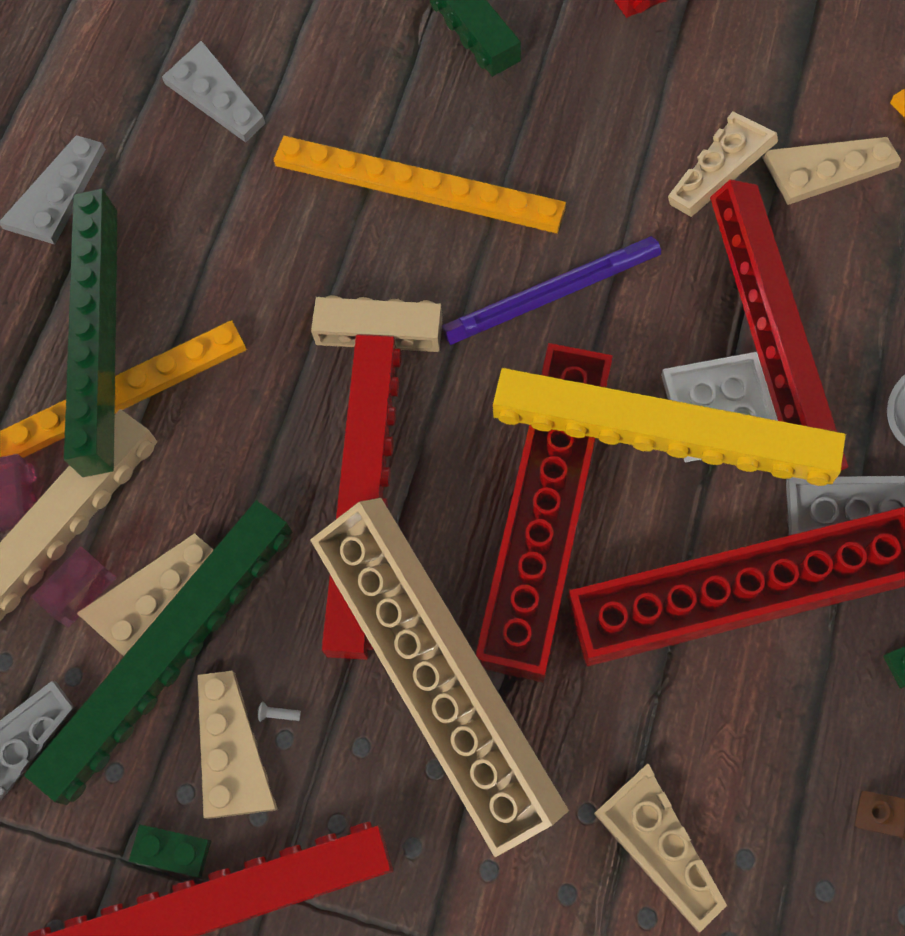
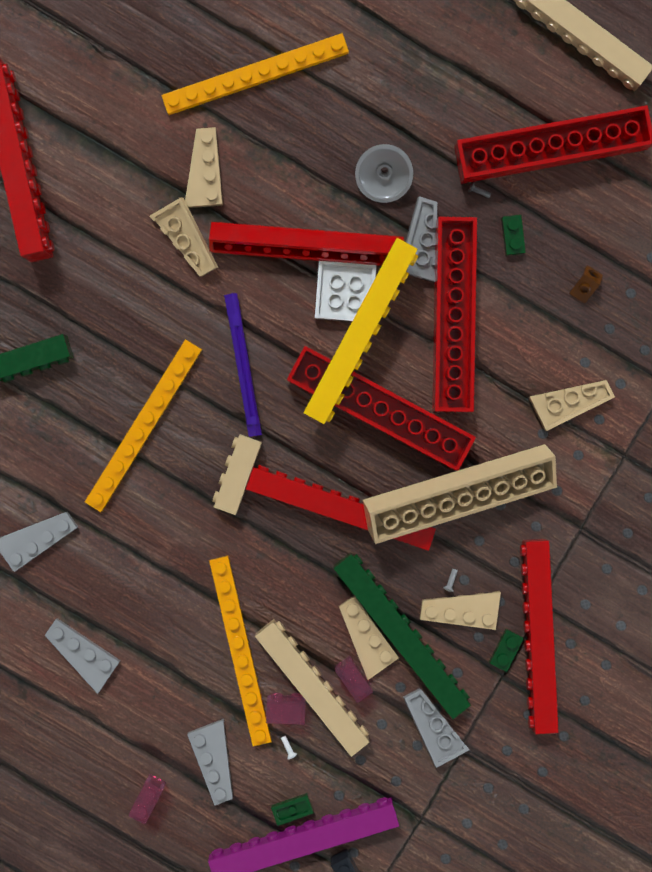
camera: 80 degrees left, 20 degrees up
(92, 336) = (197, 644): dark green brick -> none

